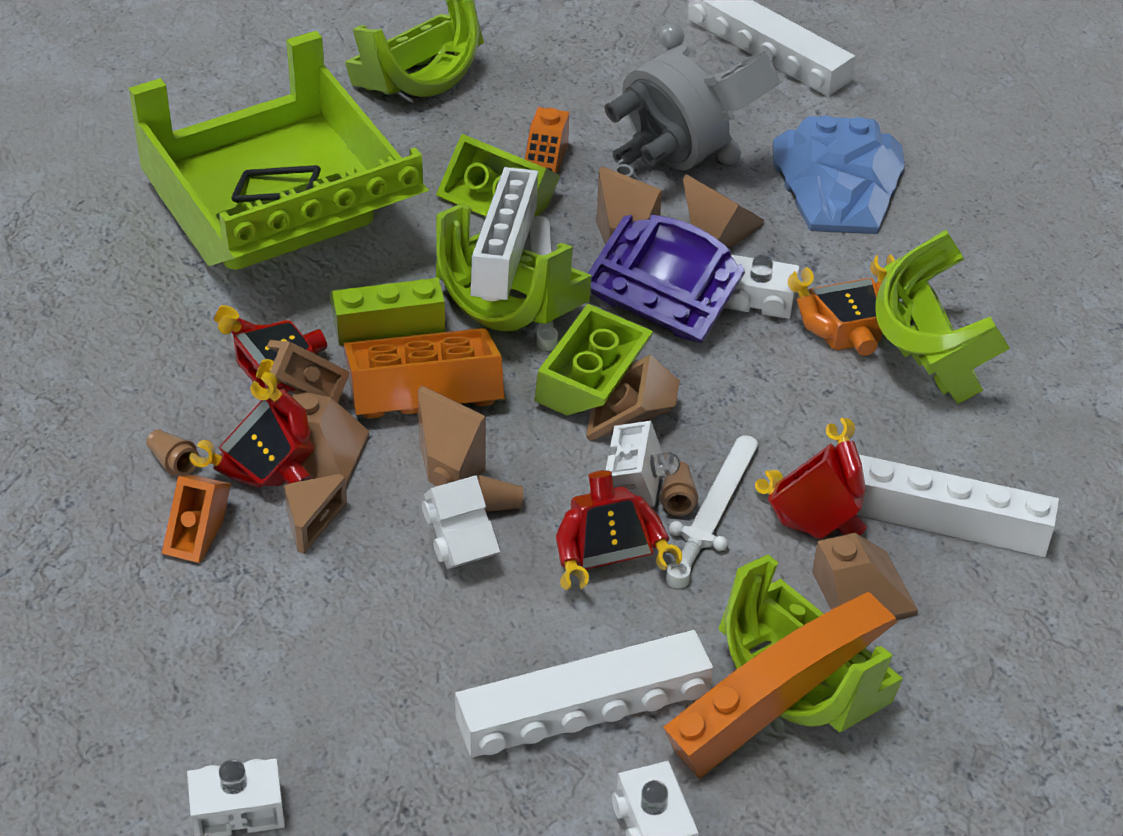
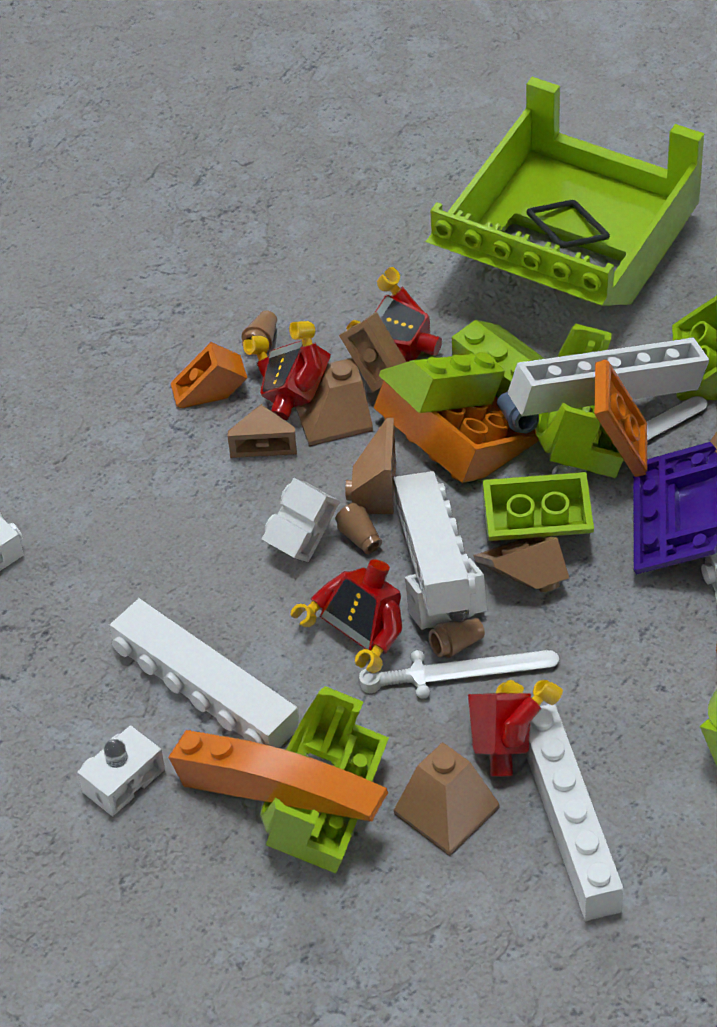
camera: 65 degrees right, 5 degrees up
(392, 337) = (446, 381): none -> lime slope
(462, 320) = (517, 423): none -> sand blue cone
(548, 230) = (620, 418): none -> orange tile
(590, 436) = (434, 543): none -> white brick

